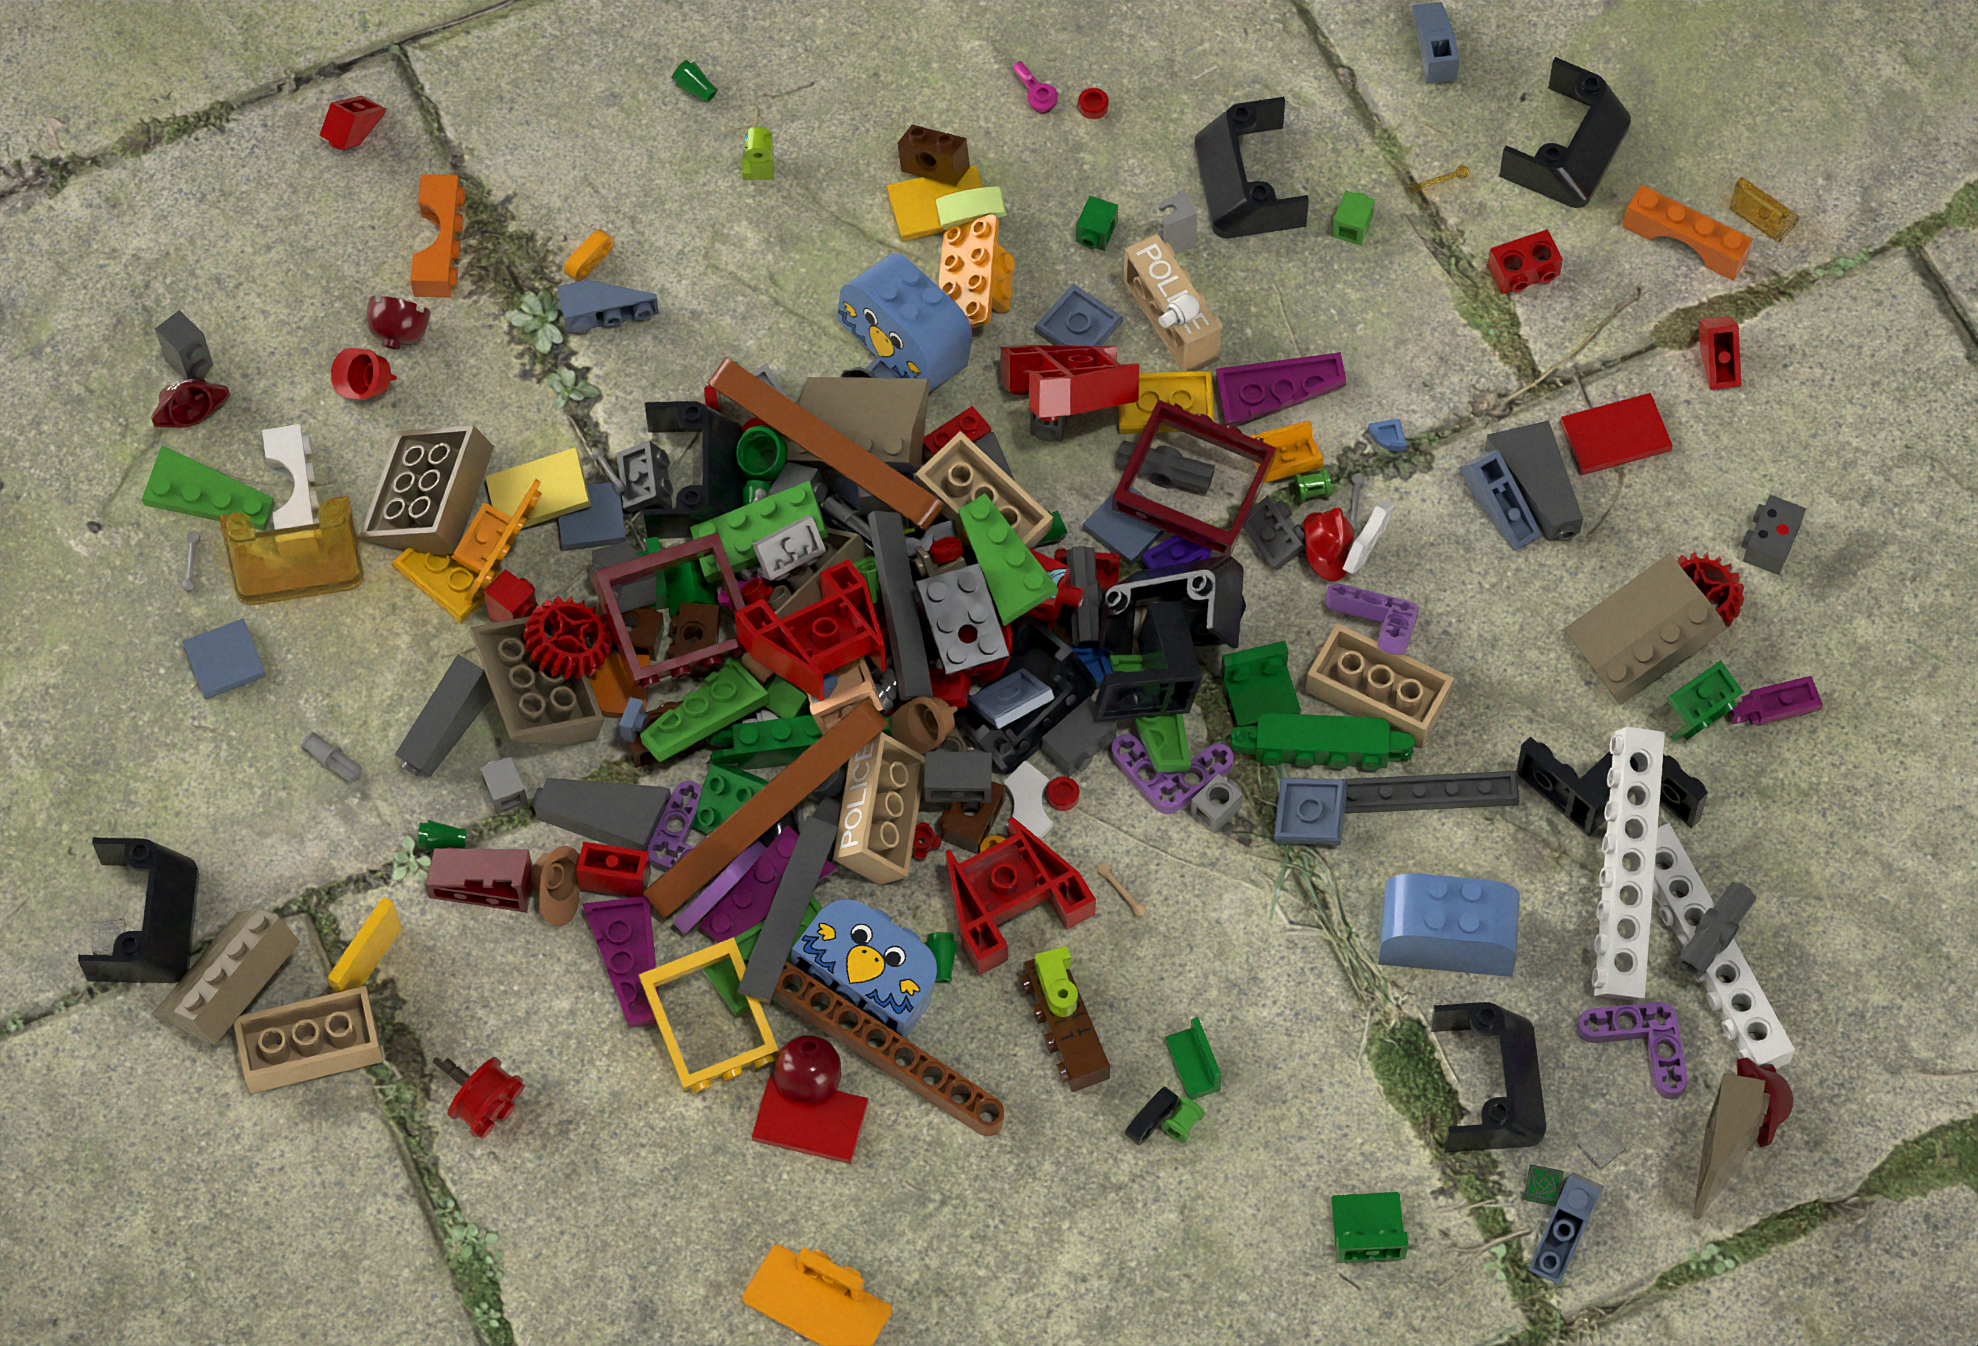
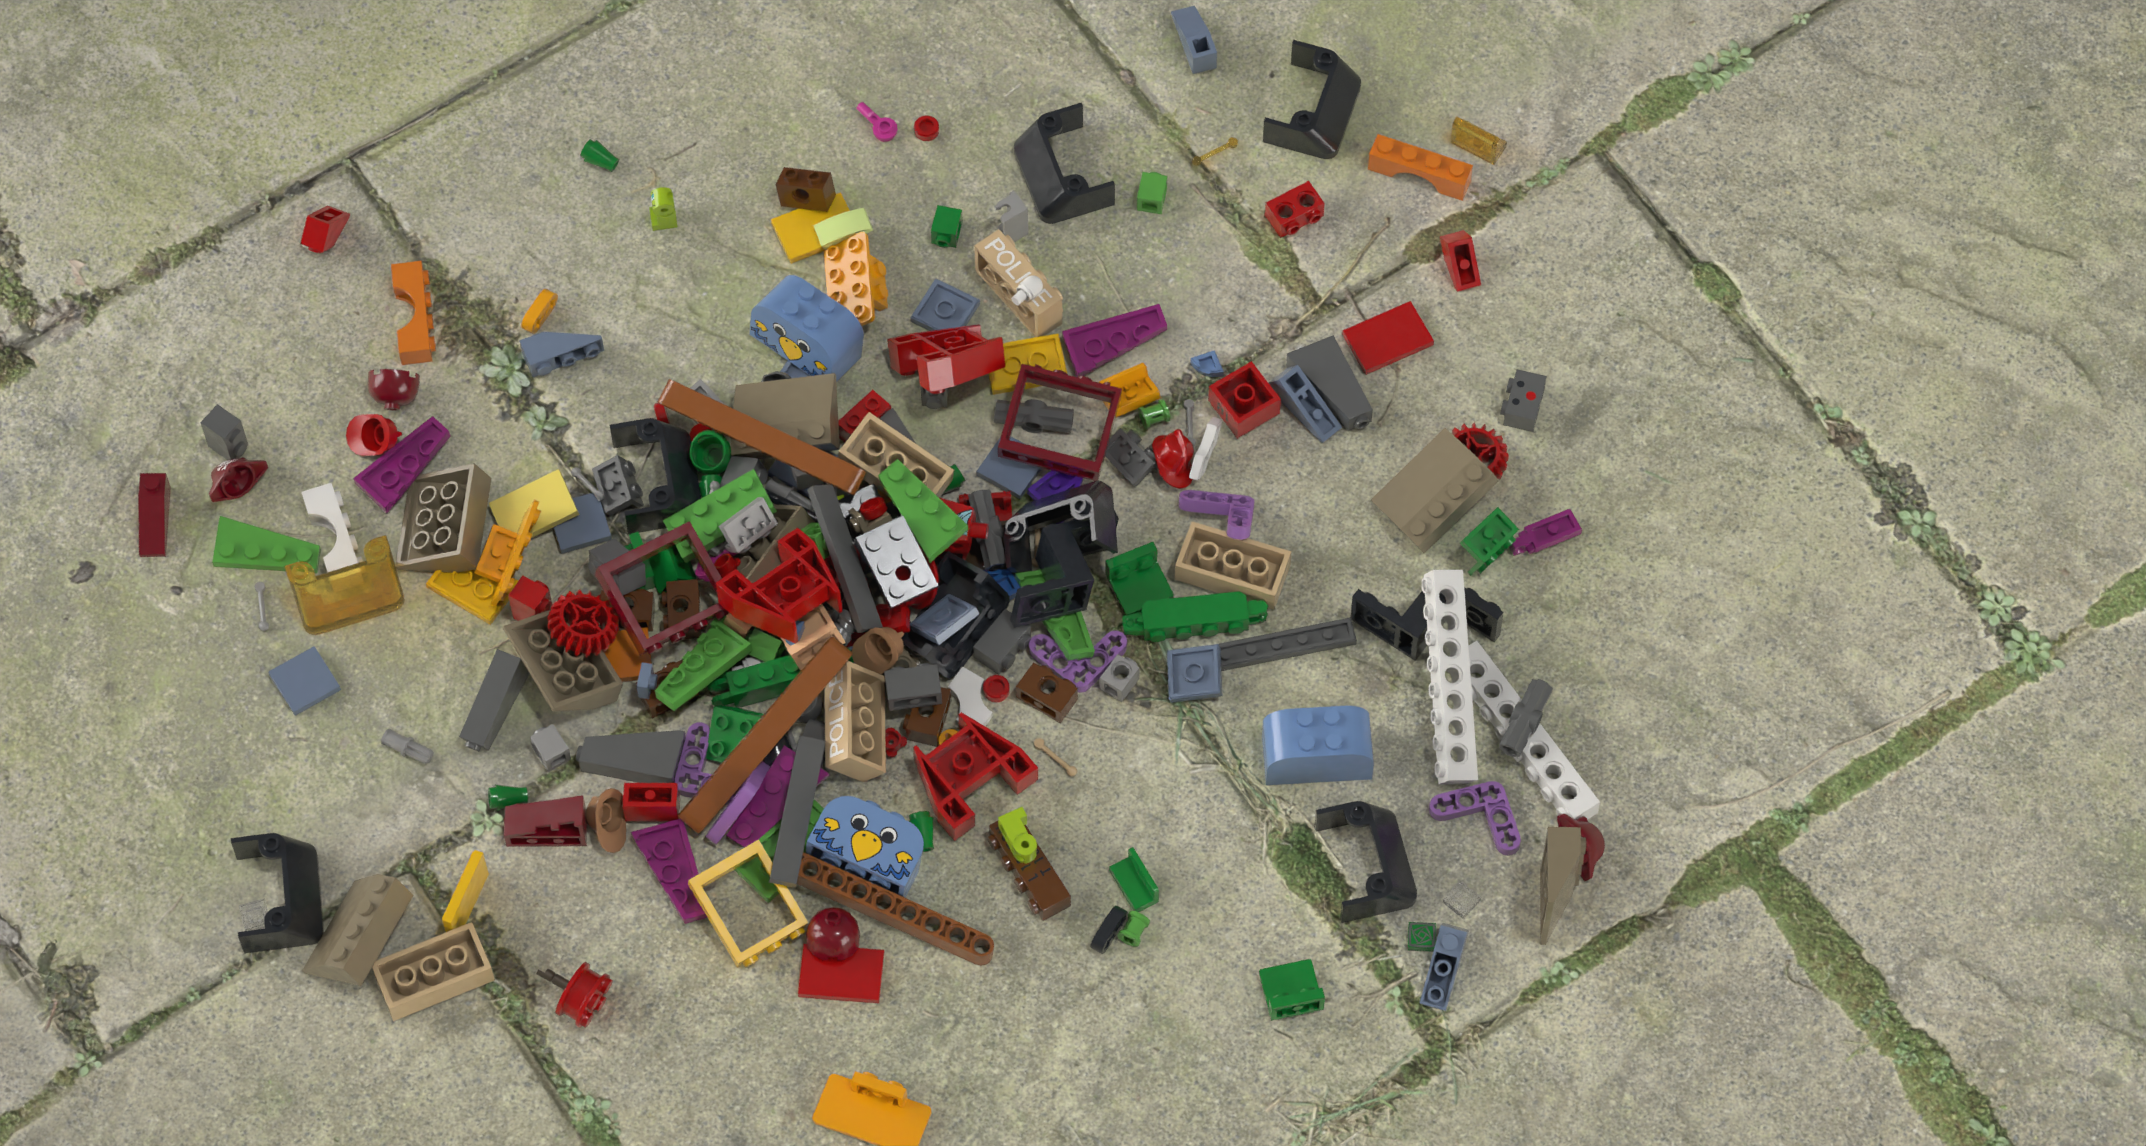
camera: 10 degrees left, 0 degrees up
(83, 431) = (153, 514): none -> dark red slope
(388, 416) = (399, 467): none -> magenta wing
(1130, 824) = (1054, 705): none -> reddish brown brick
(1426, 483) = (1244, 399): none -> red brick

